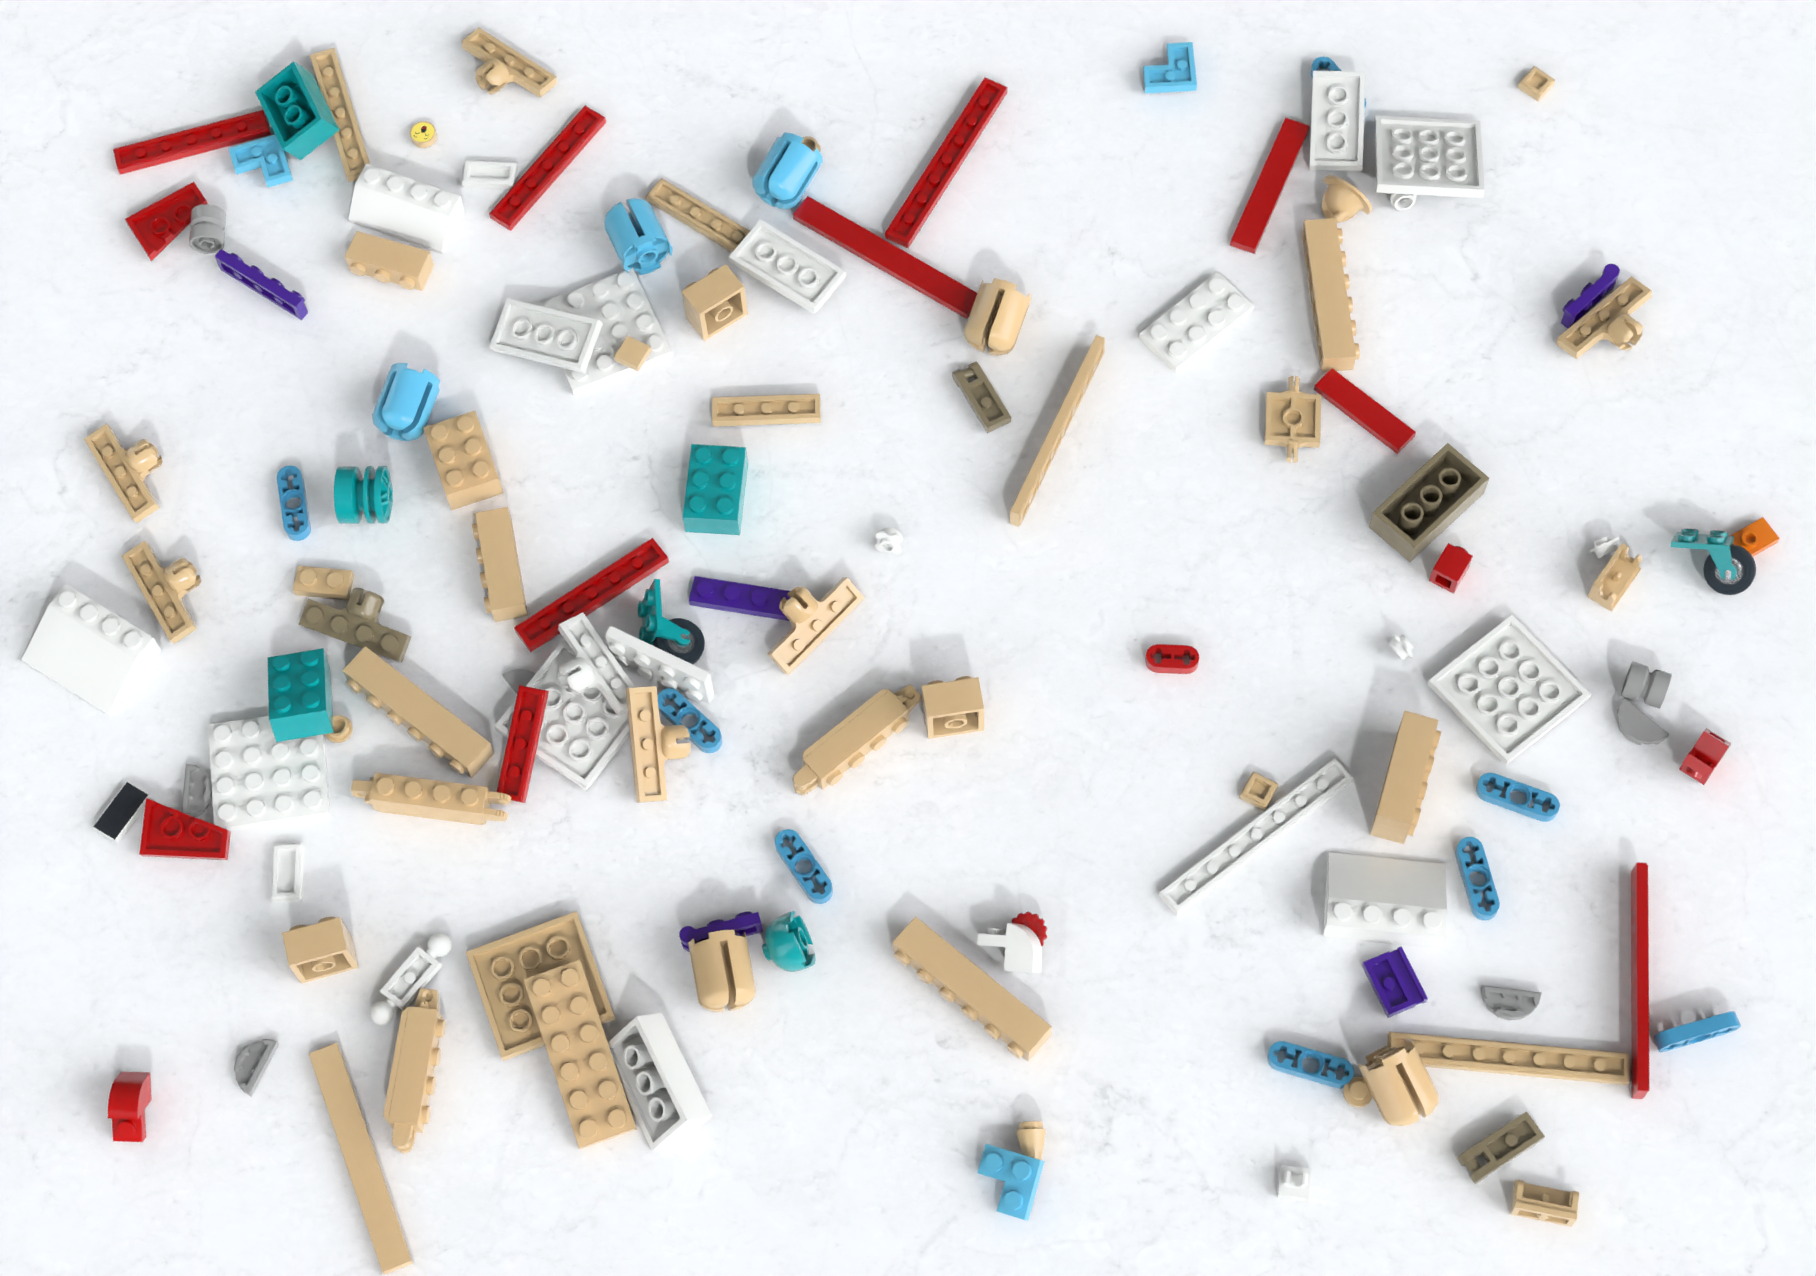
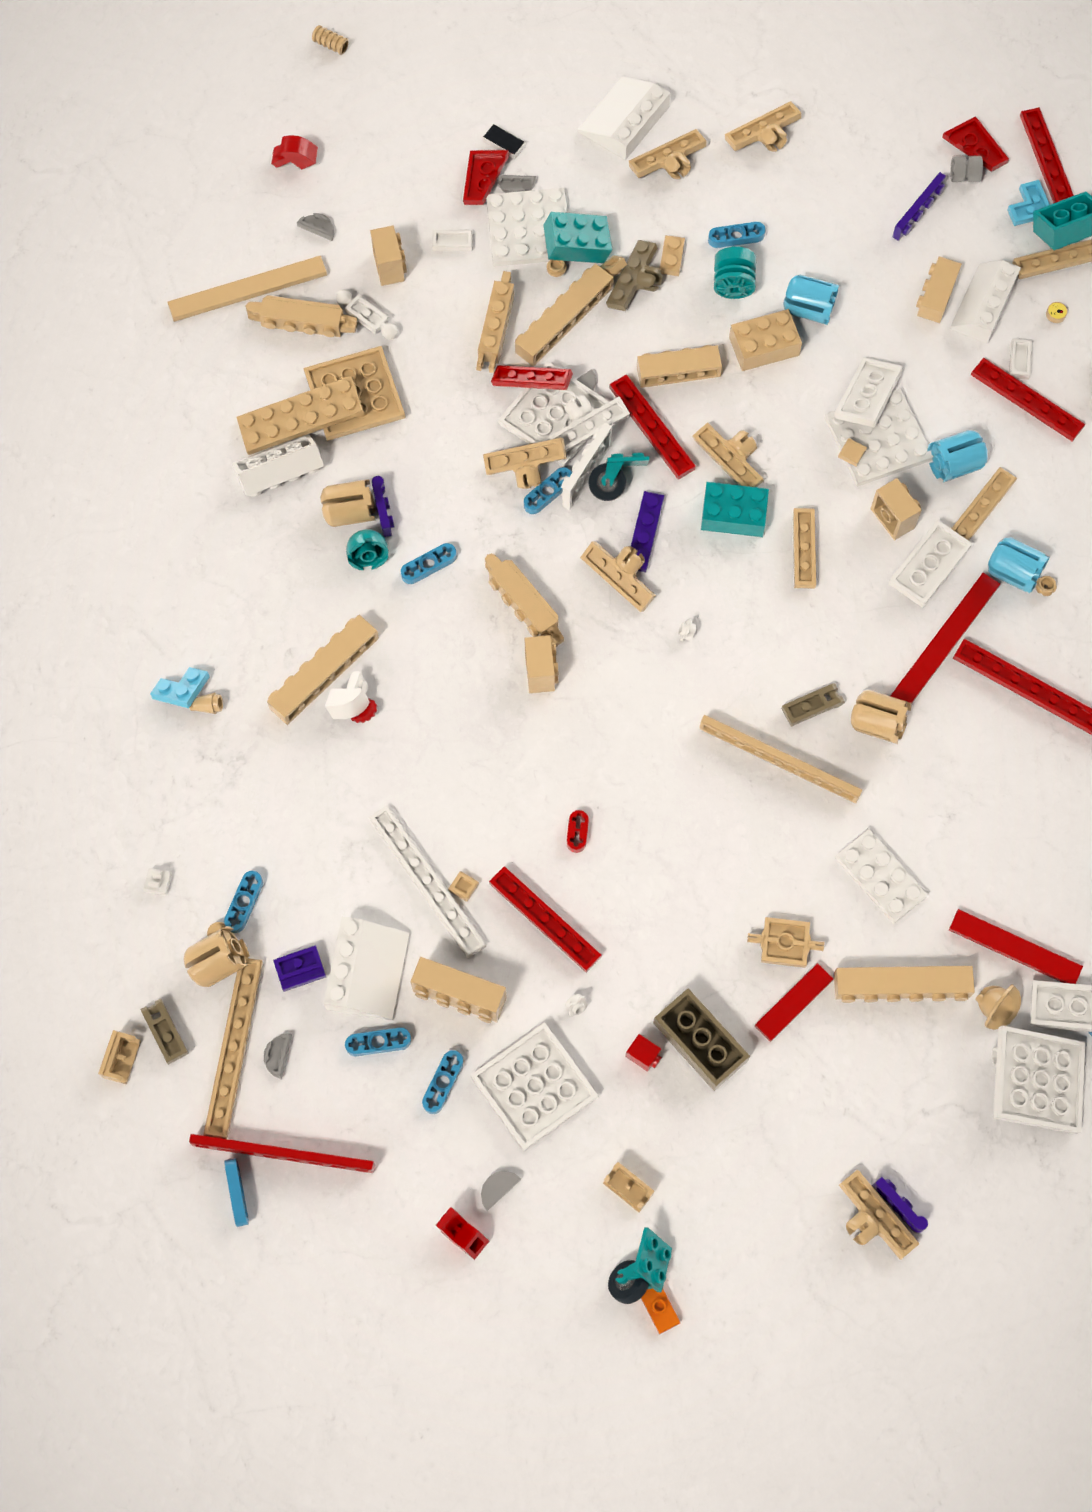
camera: 90 degrees right, 5 degrees up
(340, 652) = (614, 265): none -> tan plate
(635, 497) = (730, 454): none -> tan plate
(1293, 689) = (545, 919): none -> red plate
(1604, 546) = (657, 1182): white plate -> none
(1647, 685) = (529, 1194): light grey wheel -> none

